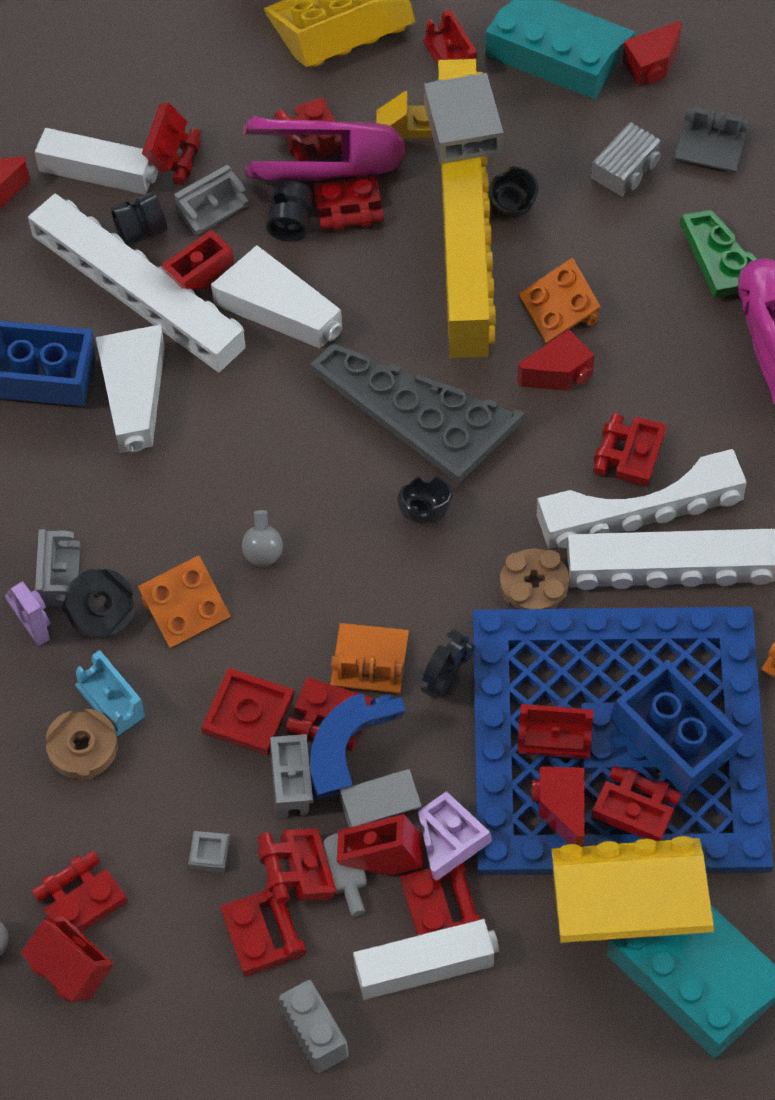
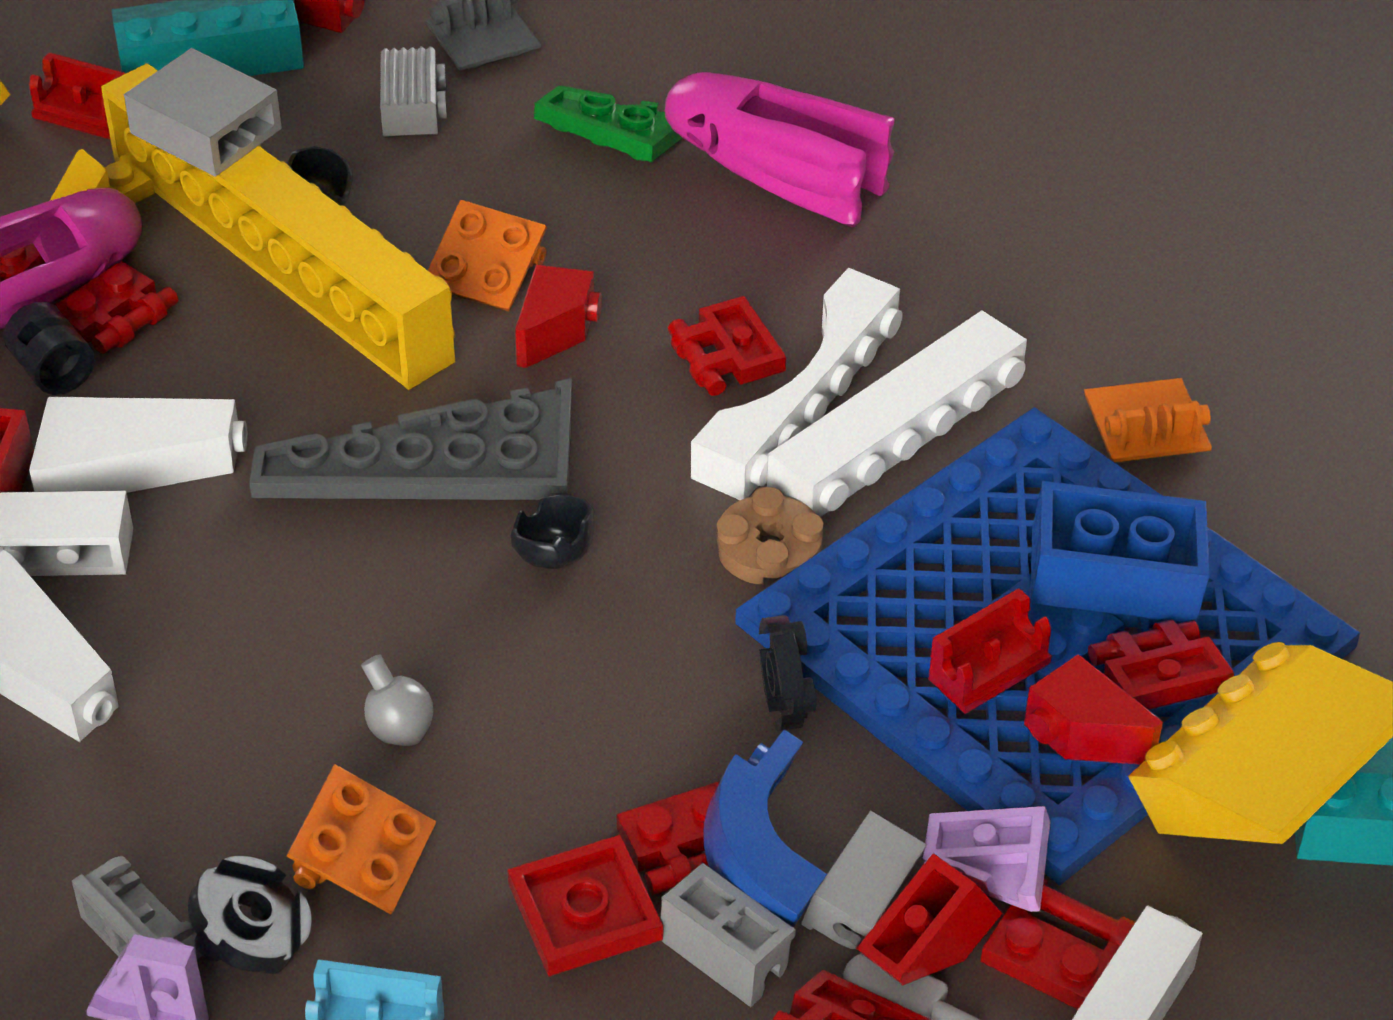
camera: 45 degrees left, 15 degrees down
(369, 658) = (669, 742): orange hinge -> none

